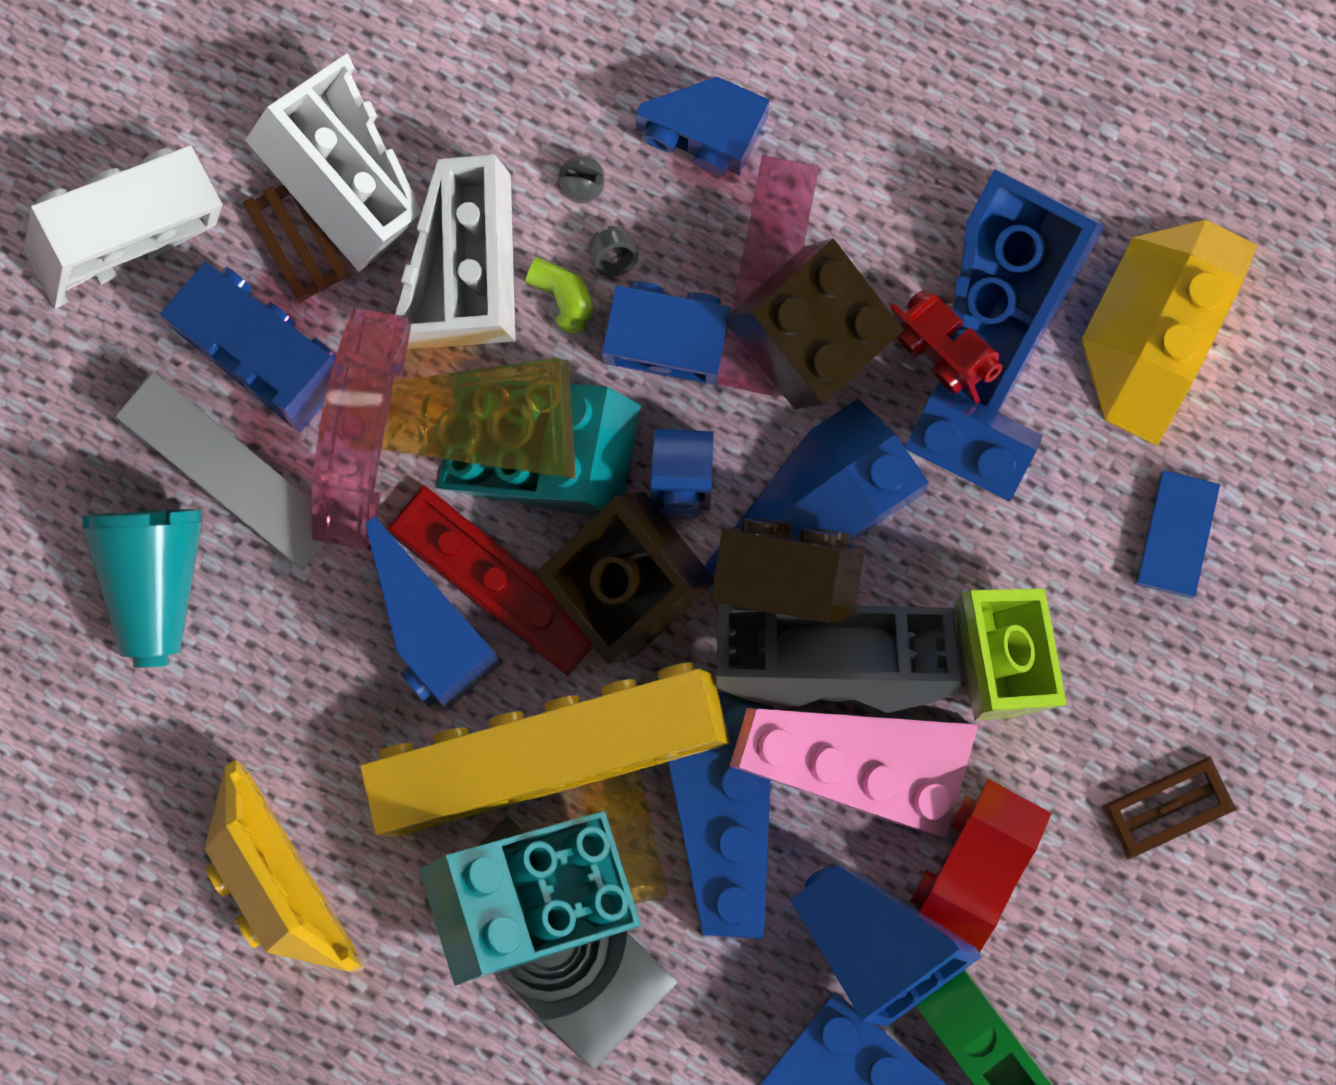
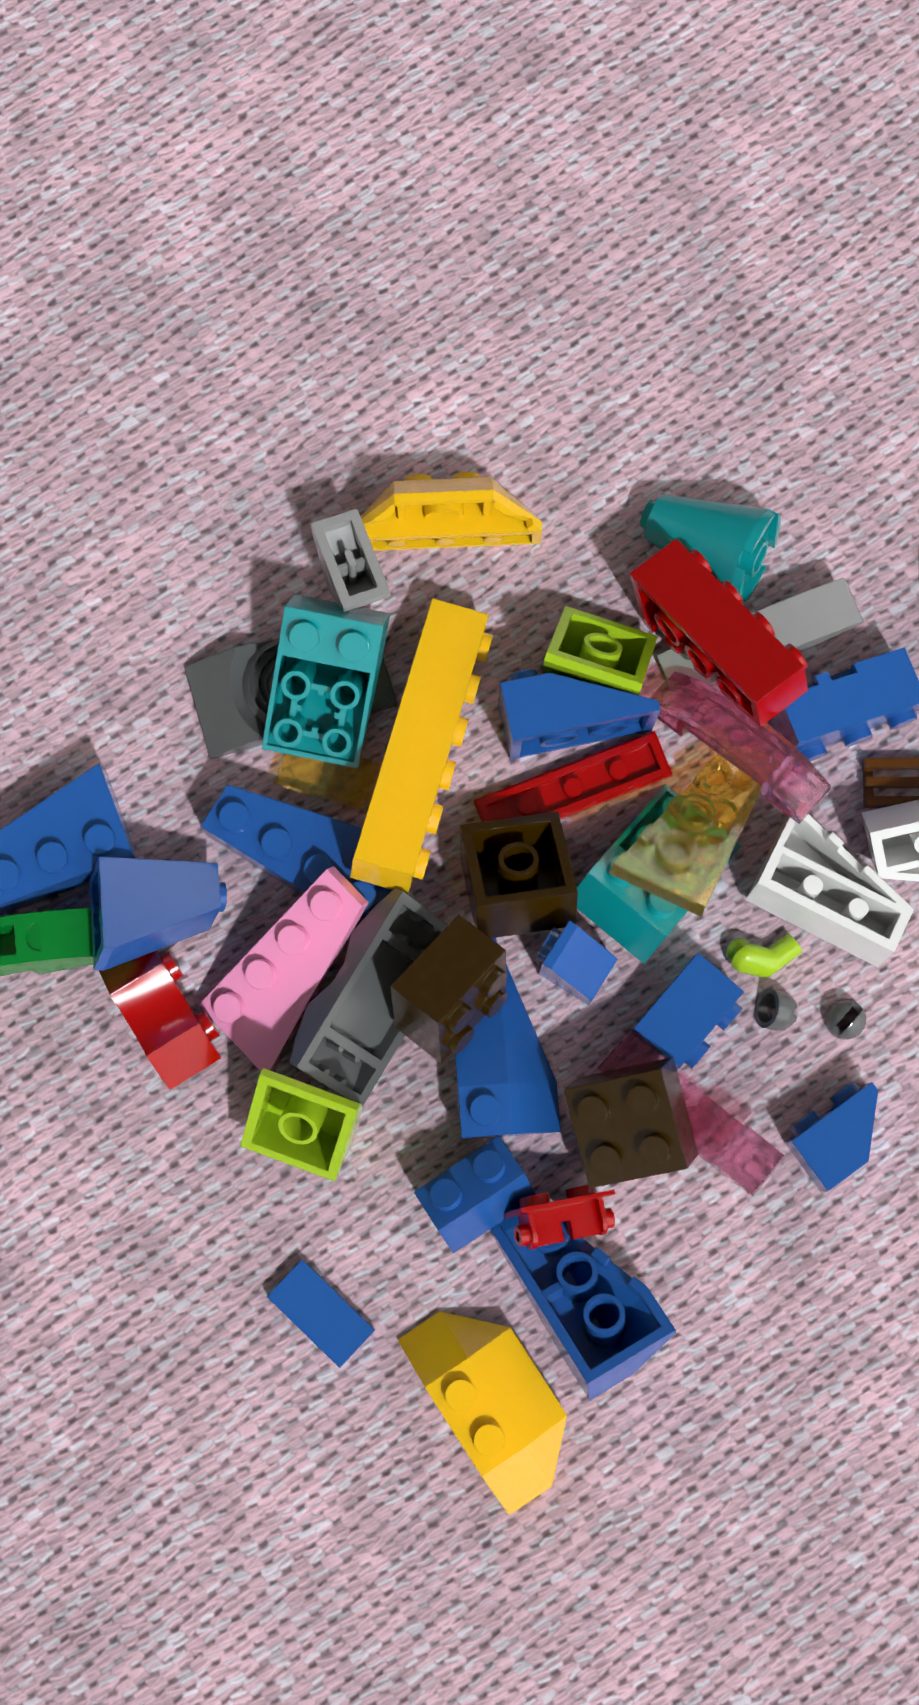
camera: 115 degrees right, 0 degrees up
(254, 501) = (718, 632): none -> red wedge
(341, 622) = (599, 651): none -> lime slope
(389, 941) = (349, 561): none -> light grey slope
(1123, 828) = (121, 1225): reddish brown tile -> none

